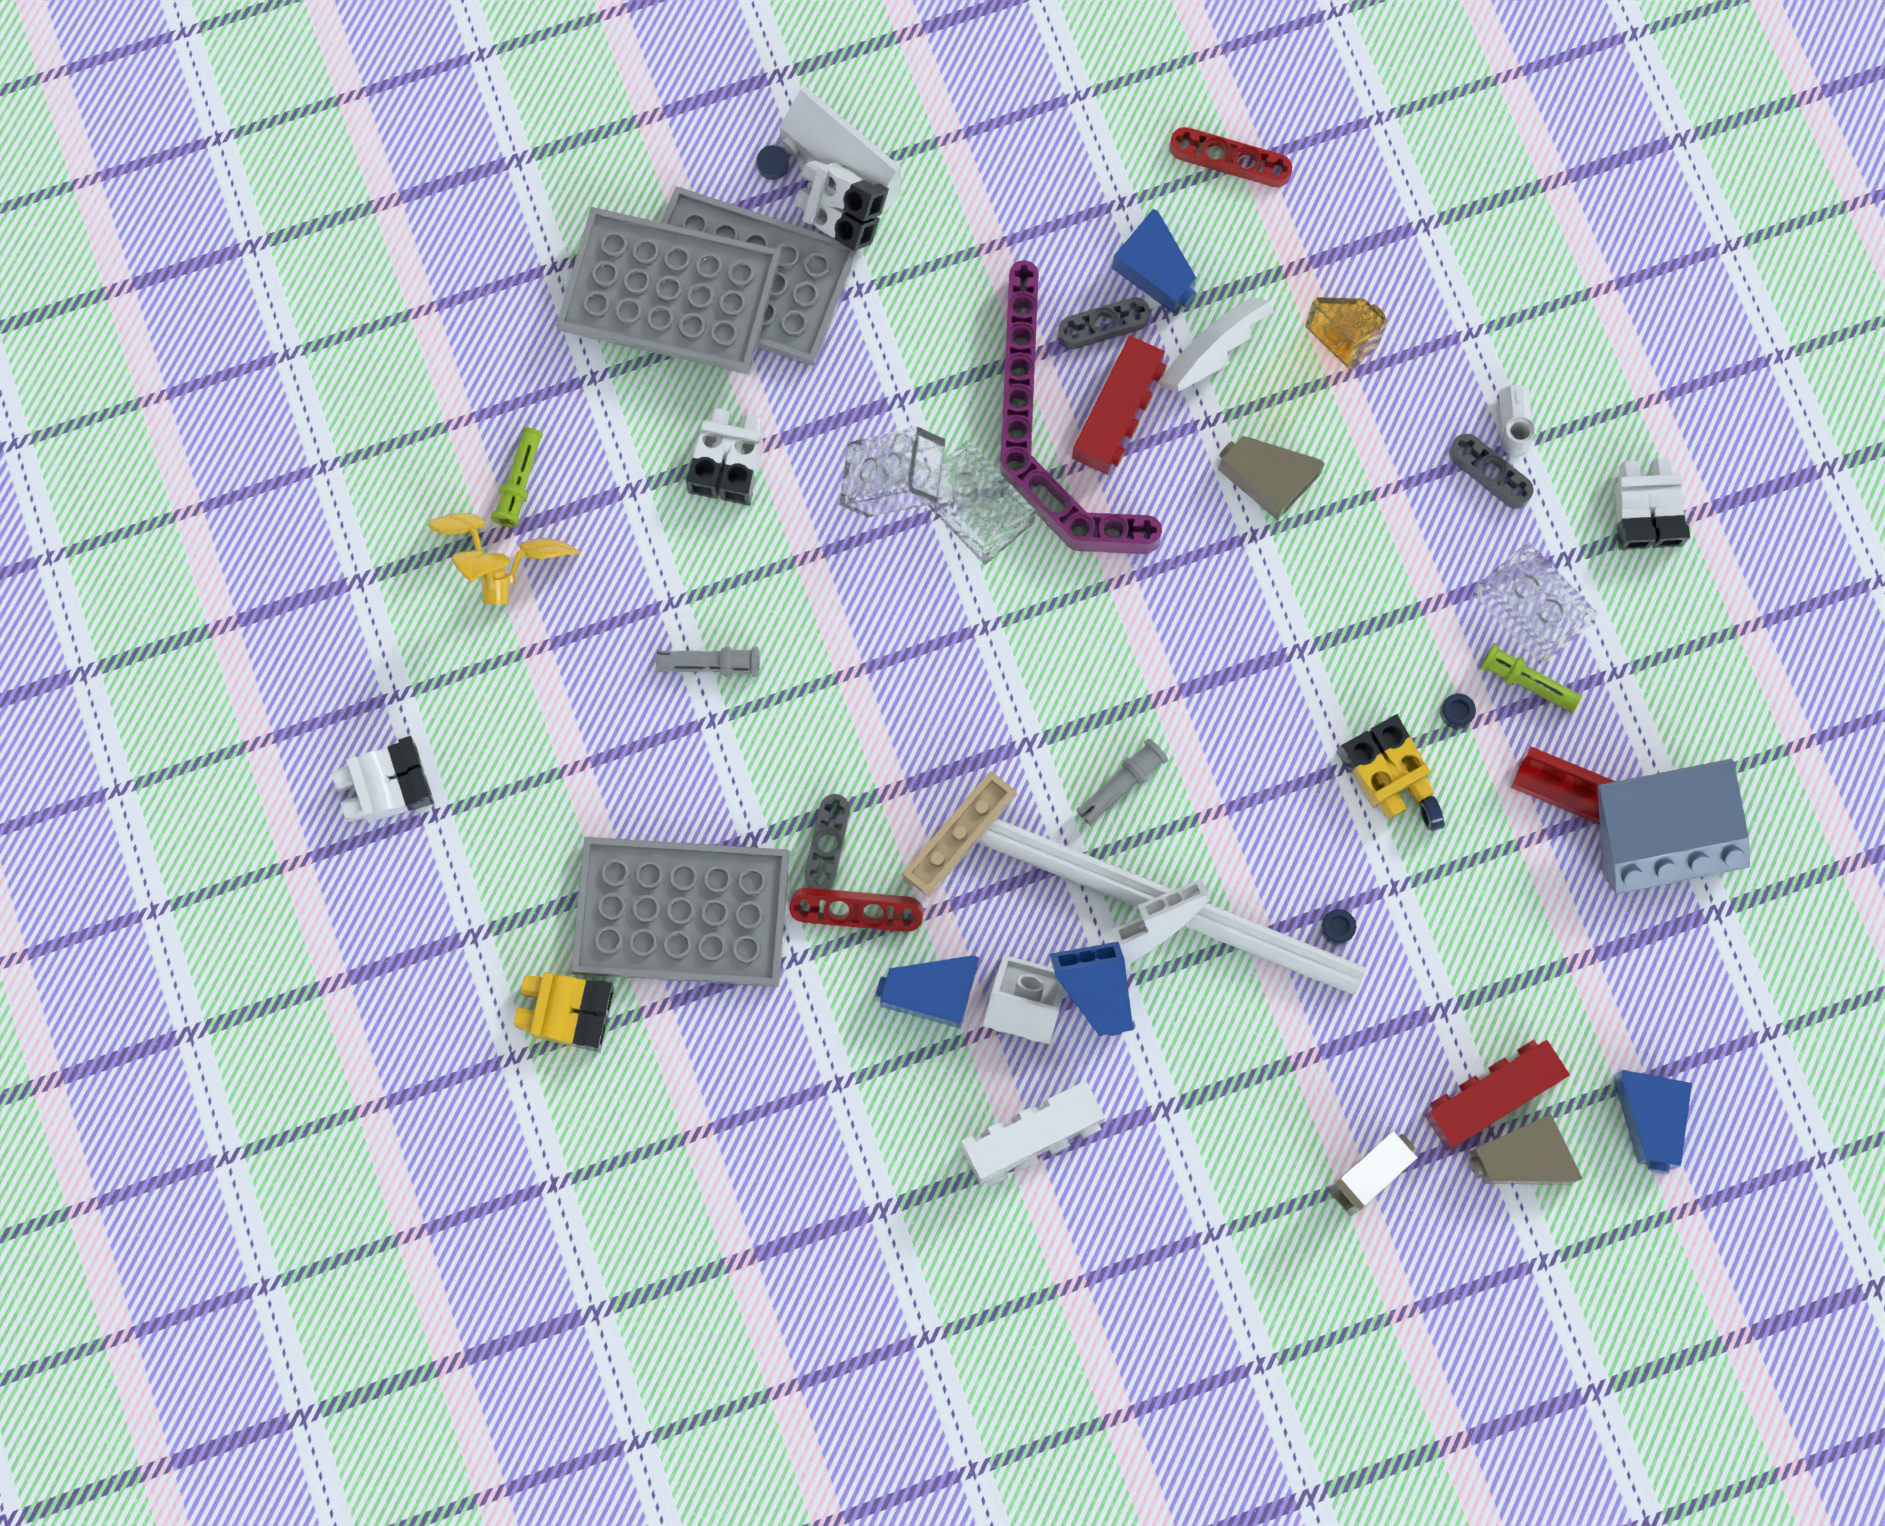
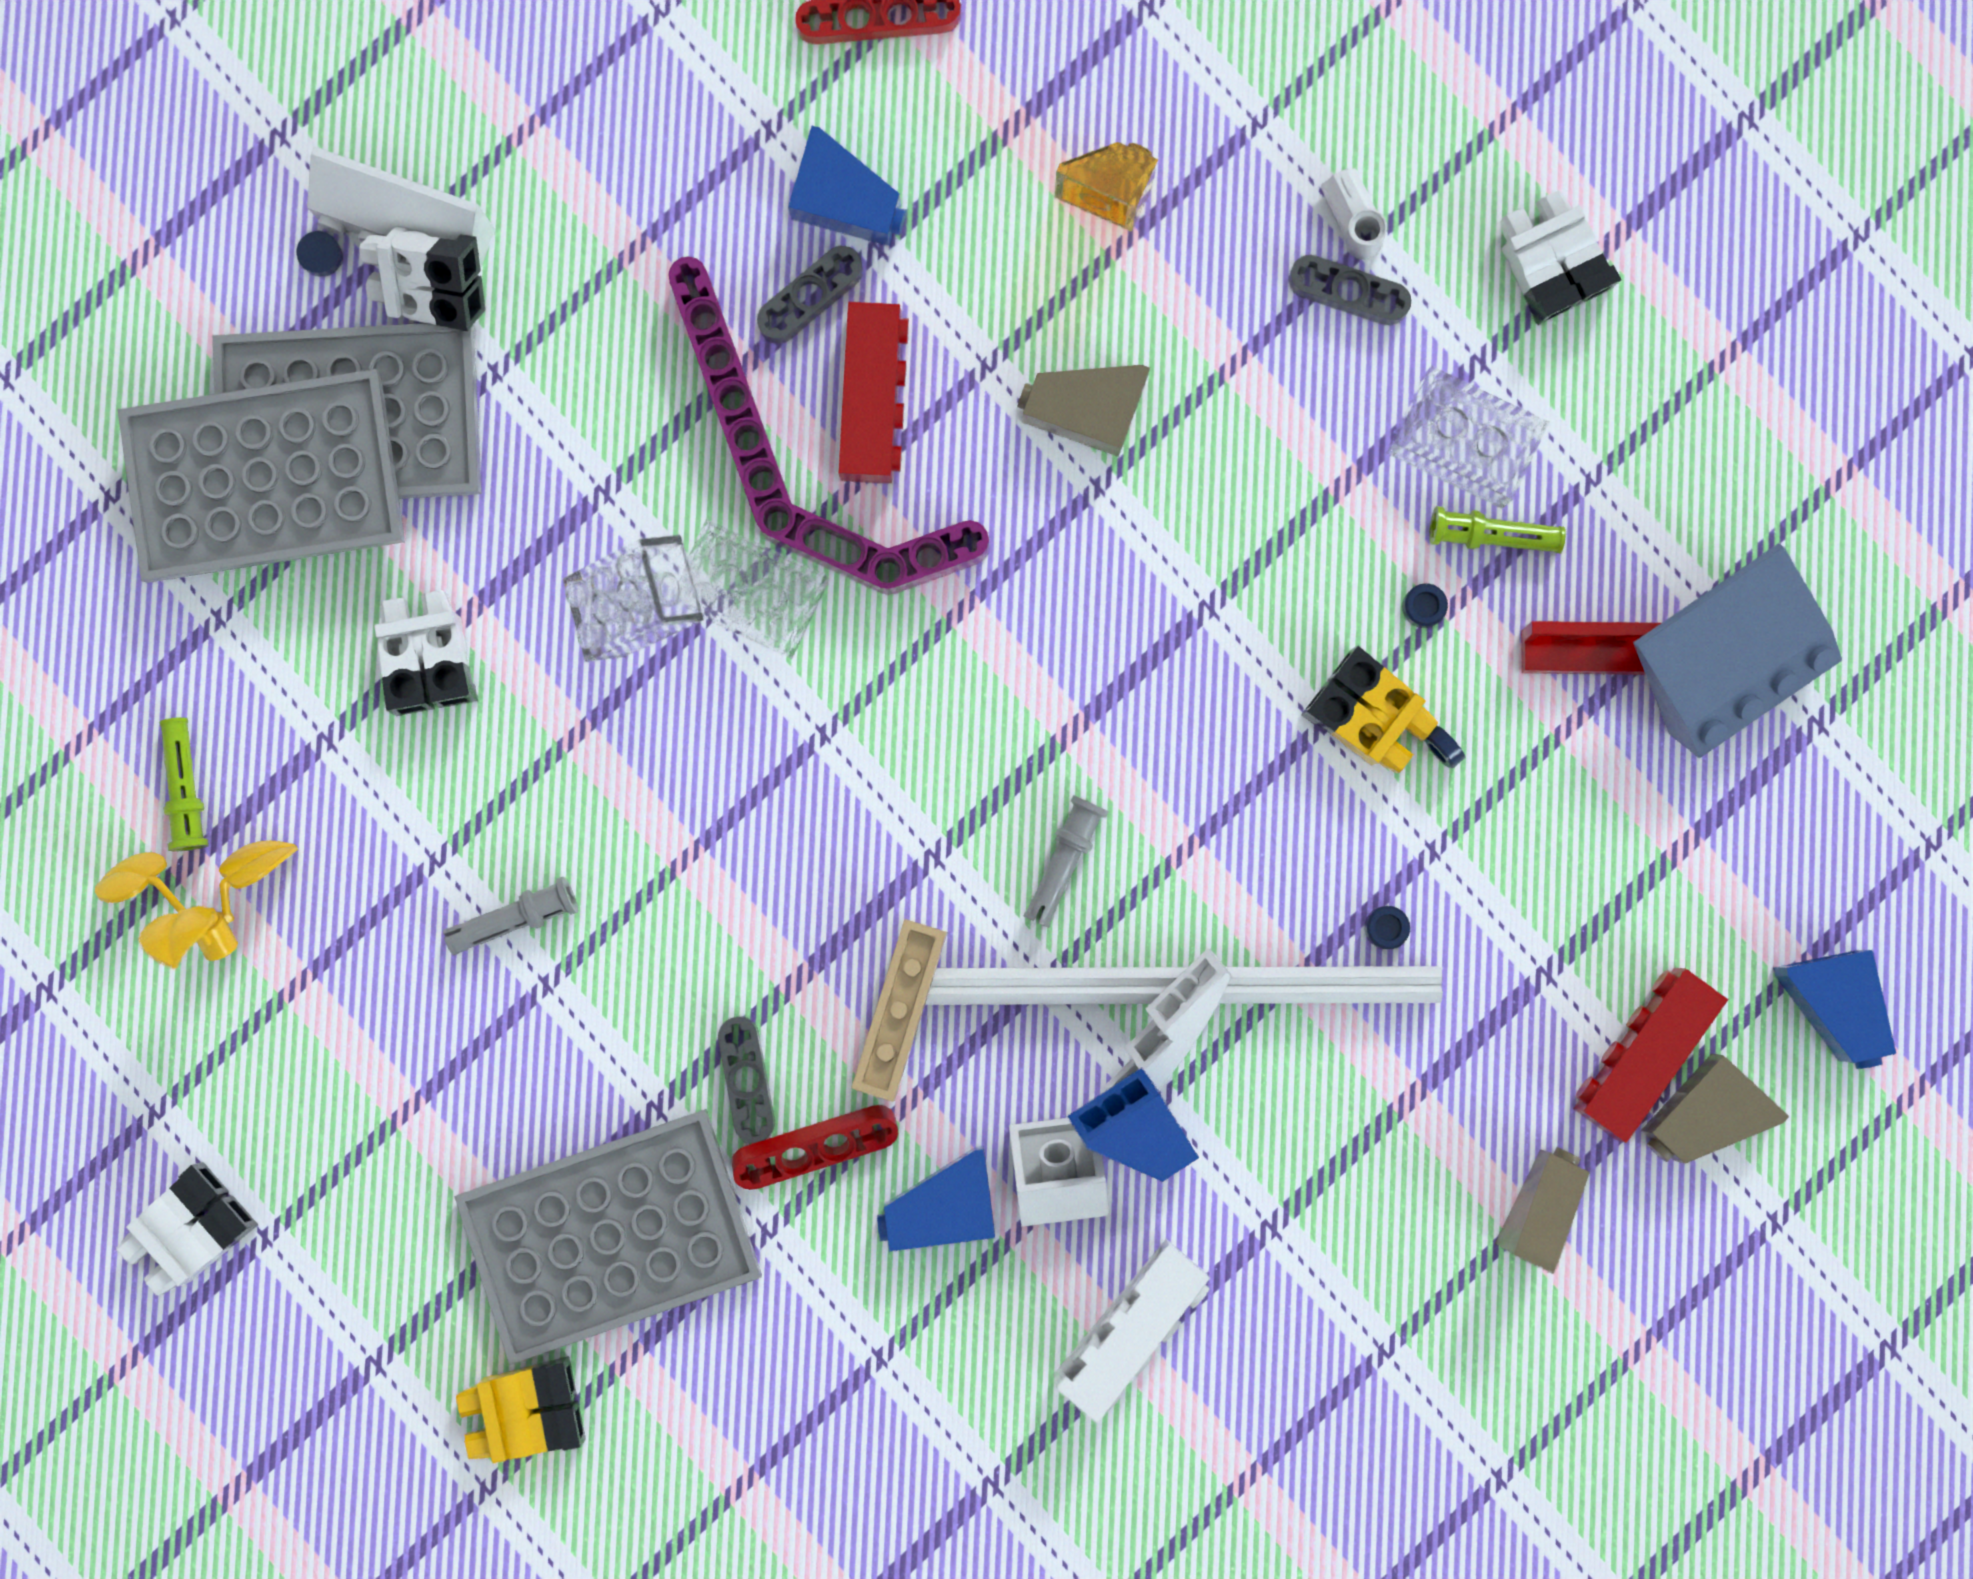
camera: 20 degrees left, 10 degrees up
(1211, 346) = (952, 276): white slope -> none

